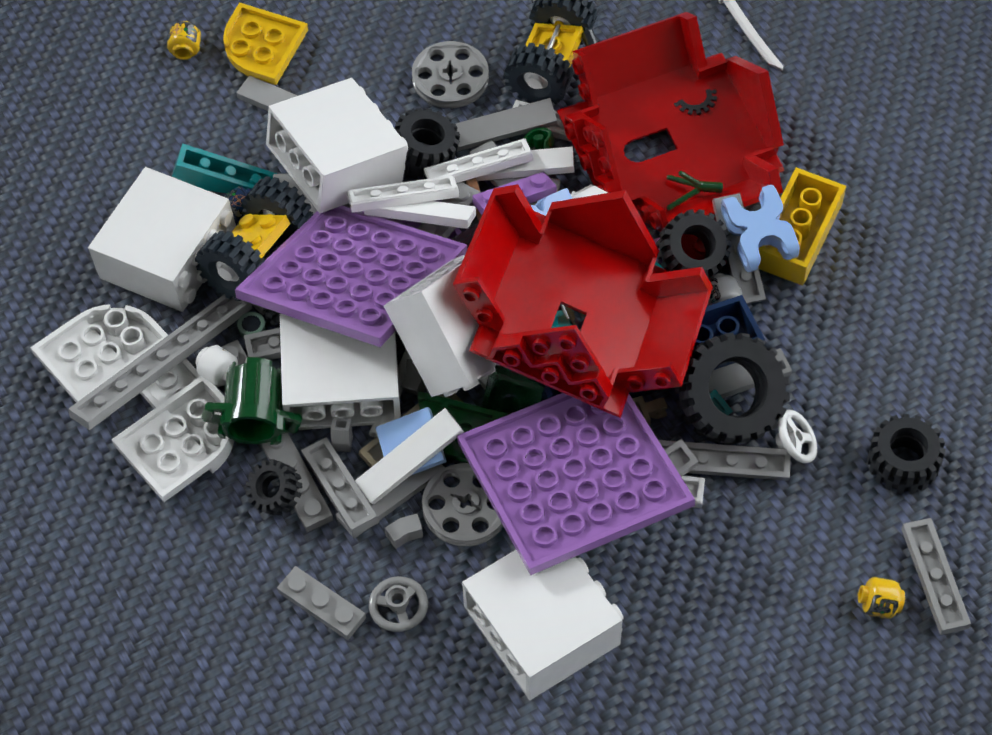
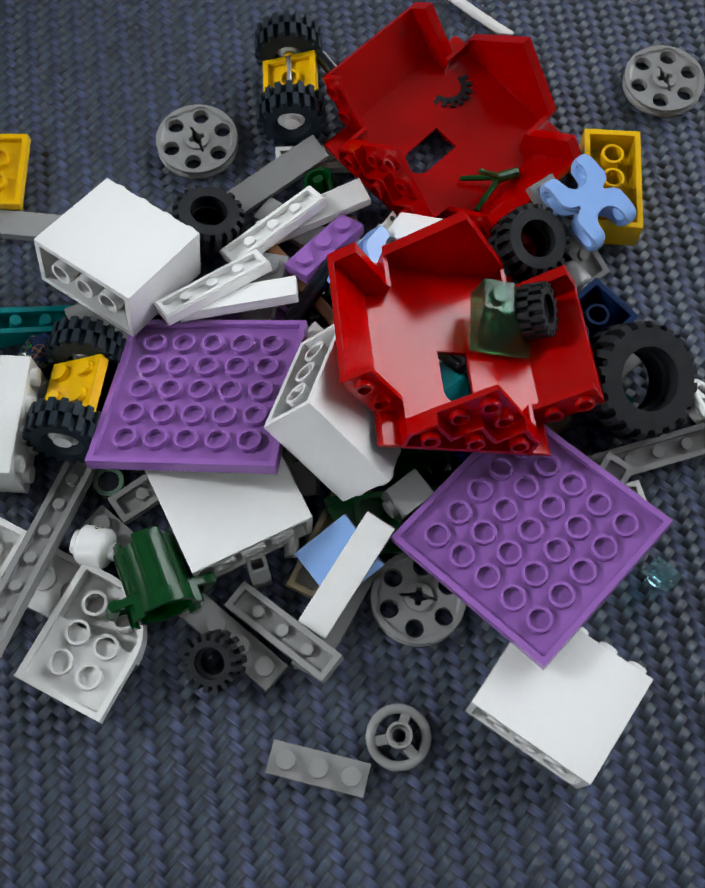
camera: 25 degrees left, 10 degrees up
(404, 530) = (369, 652): light grey piece -> none
(485, 409) = (406, 495): none -> light grey brick
(628, 295) = (495, 322): none -> slope
(661, 296) = (537, 310): none -> black tyre
(684, 558) = (662, 574): none -> clear light blue plate
(914, 152) = (667, 73): none -> light grey wedge

